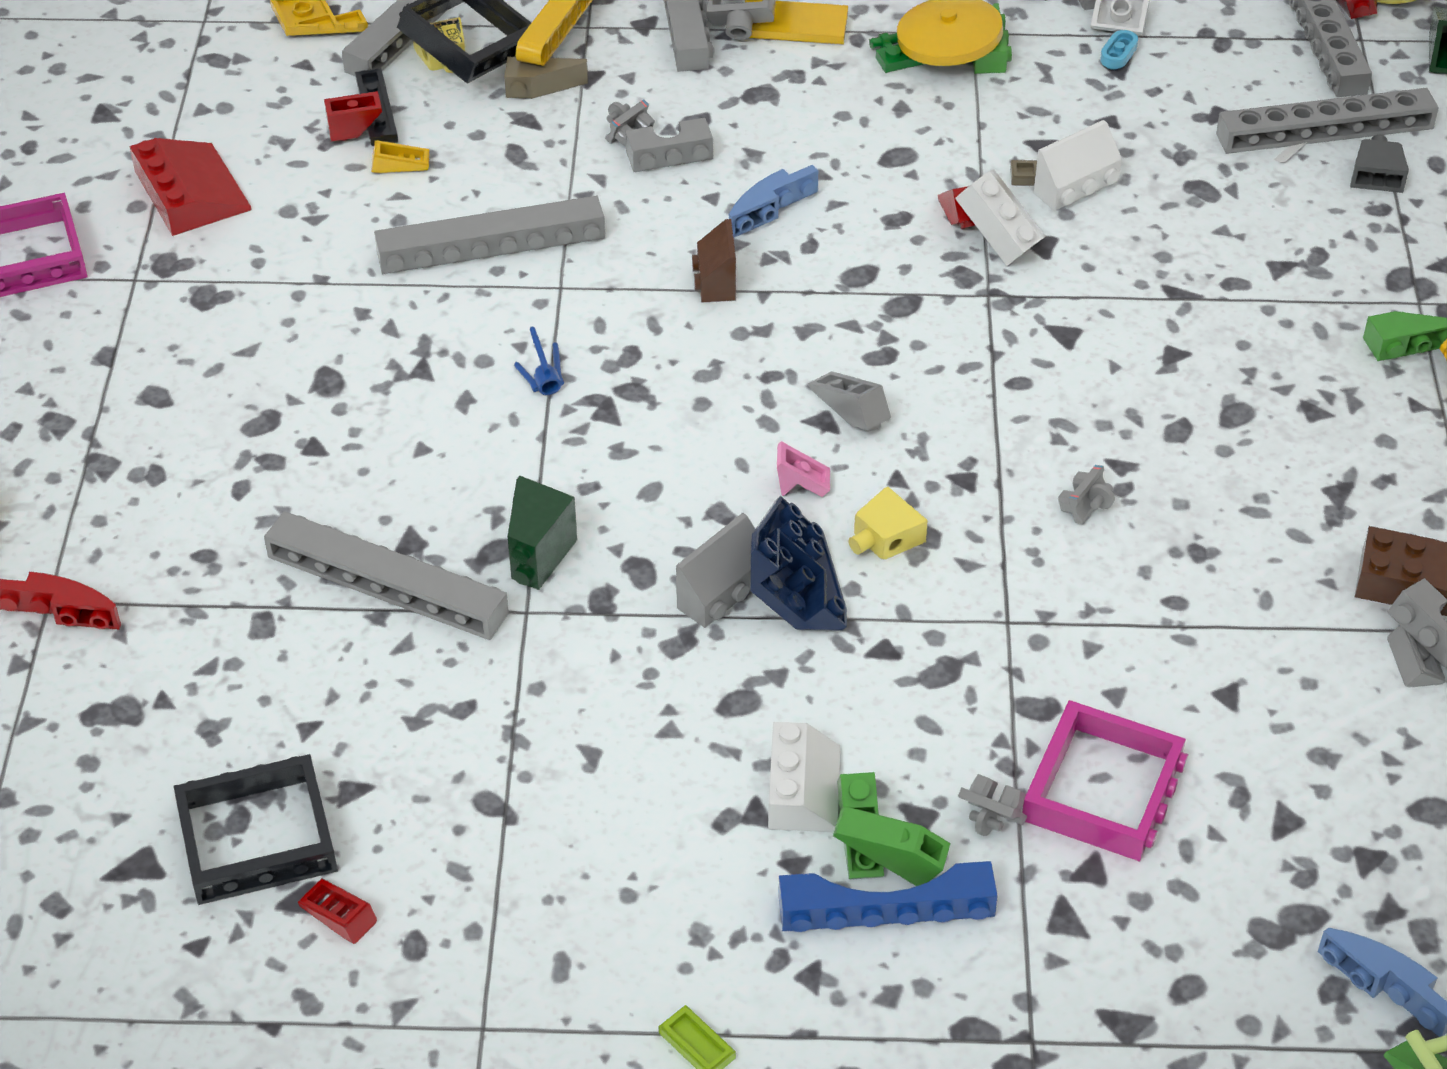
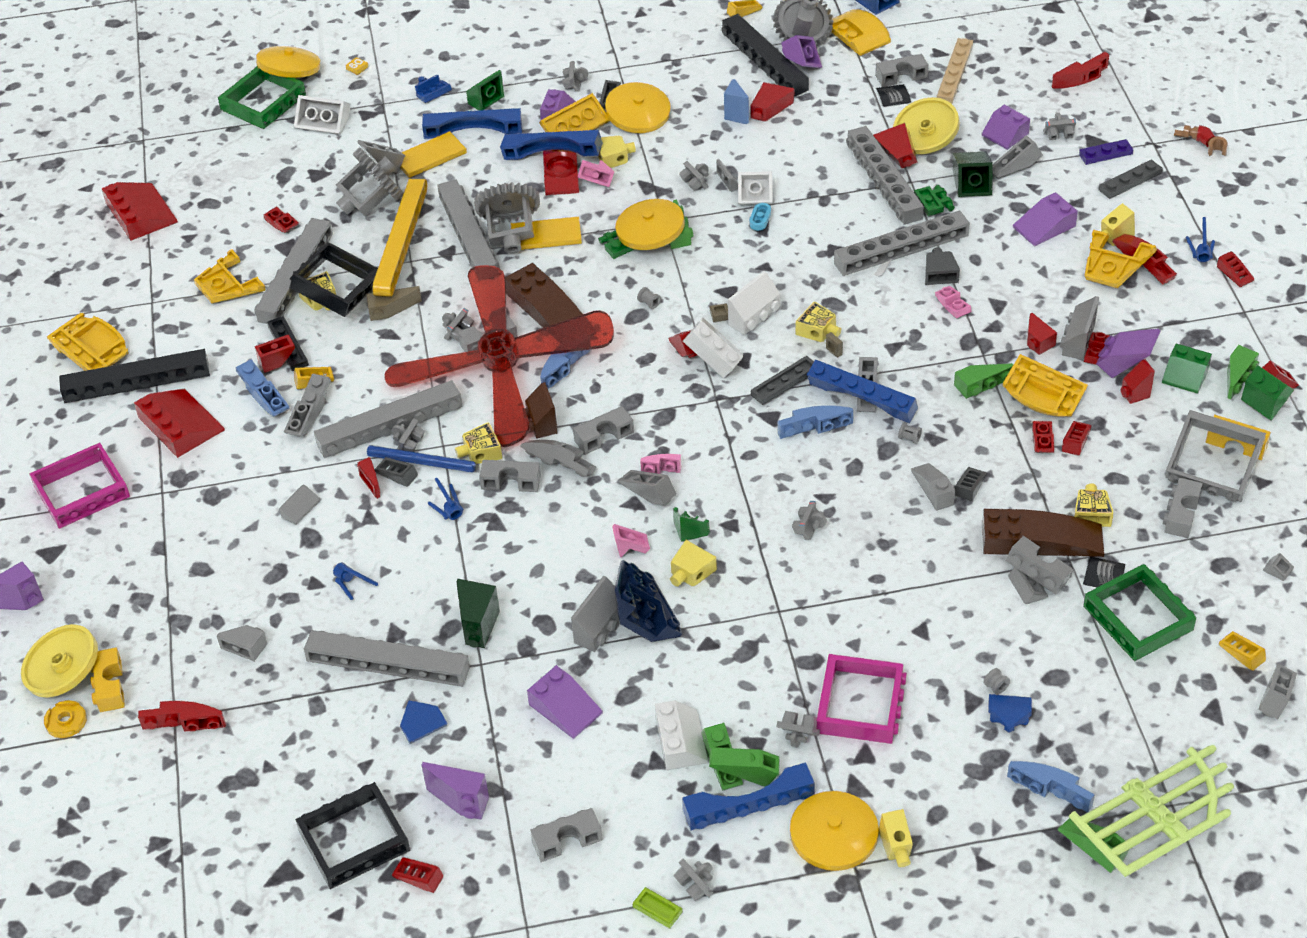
camera: 10 degrees left, 0 degrees up
(96, 58) = (89, 342): none -> yellow slope
(145, 112) = (134, 375): none -> black brick
(182, 510) = (243, 641): none -> light grey slope
(319, 161) = (261, 389): none -> medium blue slope
(323, 331) = (299, 505): none -> light grey slope
(362, 442) = (345, 574): none -> blue plant
(380, 199) = (309, 407): none -> light grey slope
(410, 678) = (421, 720): none -> blue slope
(435, 790) = (458, 788): none -> medium lavender slope
(437, 308) = (368, 475): none -> red slope
(485, 312) = (399, 471): none -> dark grey slope
(506, 260) = (404, 435): none -> light grey hips
(522, 299) = (421, 458): none -> blue axle
(608, 886) = (581, 826): none -> light grey arch
(613, 295) = (480, 445): none -> light yellow torso
(627, 337) = (495, 472): none -> light grey arch
(634, 692) = (563, 702): none -> medium lavender slope
(682, 168) = (501, 351): none -> clear red piece
(724, 324) = (555, 451): none -> light grey slope
(759, 997) = (687, 873): none -> light grey hips
(768, 115) = (540, 296): none -> reddish brown slope
(824, 298) = (615, 422): none -> light grey arch
(880, 368) = (661, 462): none -> bright pink slope
(899, 470) = (689, 527): none -> green slope
(922, 133) = (648, 297): none -> light grey bush
(1013, 979) = (834, 830): none -> yellow dish
(1099, 284) = (782, 381): none -> dark grey plate
(1110, 1010) = (896, 837): none -> light yellow torso
(1141, 347) = (816, 417): none -> medium blue slope
(1169, 212) = (817, 323): none -> light yellow torso
(1188, 246) = (834, 345): none -> dark tan tile
(1226, 311) = (867, 370): none -> light grey slope
(1258, 342) = (835, 379): none -> blue arch
(1277, 394) = (905, 432): none -> light grey bush
(1299, 480) = (935, 485): none -> light grey slope
(1332, 796) = (996, 681): none -> light grey wheel
(1344, 847) = (1009, 710): none -> blue slope
(1351, 491) = (967, 492): none -> dark grey slope
(1387, 217) = (952, 302): none -> bright pink slope
(1390, 69) = (930, 200): none -> green plate

